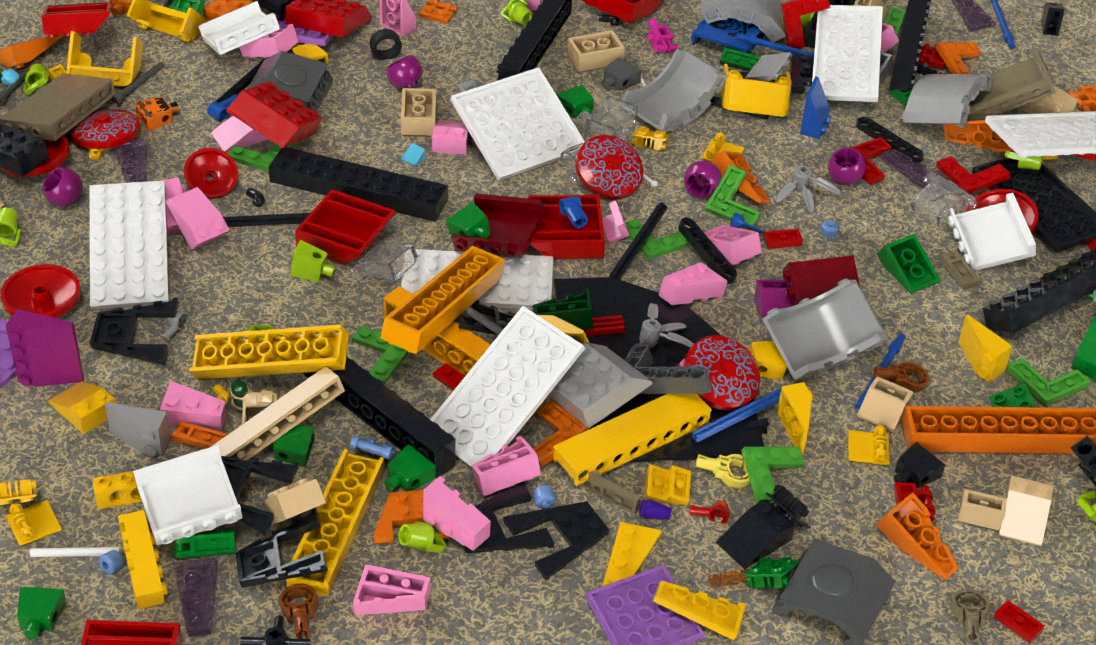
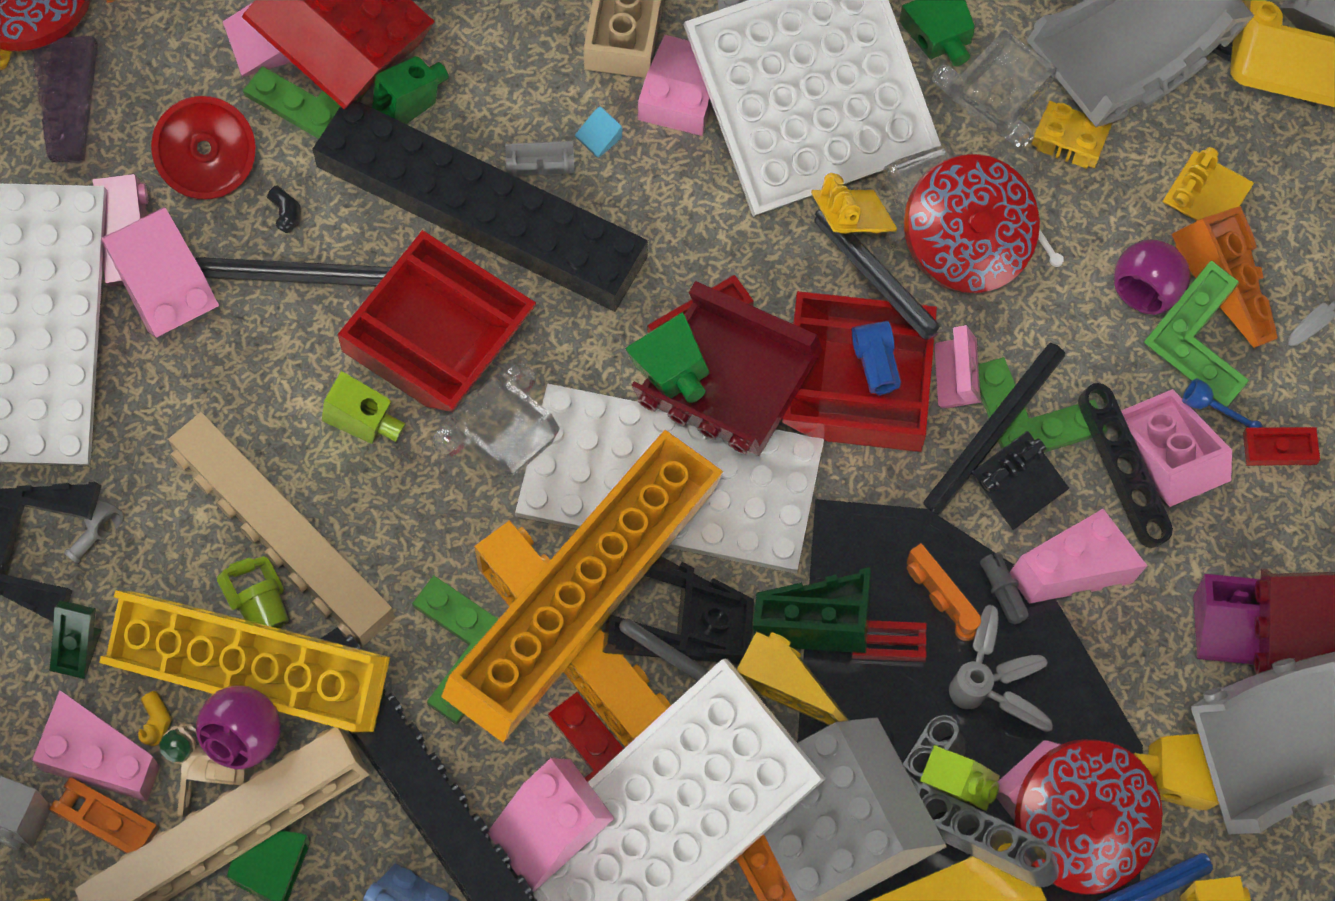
camera: 10 degrees right, 25 degrees up
(172, 364) = (73, 639): none -> dark green slope
(260, 304) = (280, 529): none -> tan brick
(278, 366) = (238, 727): none -> magenta wheel
(313, 141) = (408, 88): none -> green torso
(389, 164) = (540, 158): none -> light grey hinge
(445, 397) = (549, 821): none -> bright pink slope
(544, 166) = (851, 209): none -> yellow hinge
(566, 186) = (881, 279): none -> black axle
(627, 301) = (944, 592): none -> orange plate
(651, 355) = (961, 778): none -> lime brick
(656, 260) = (1020, 479): none -> black hinge
(657, 298) = (1004, 588): none -> dark grey axle

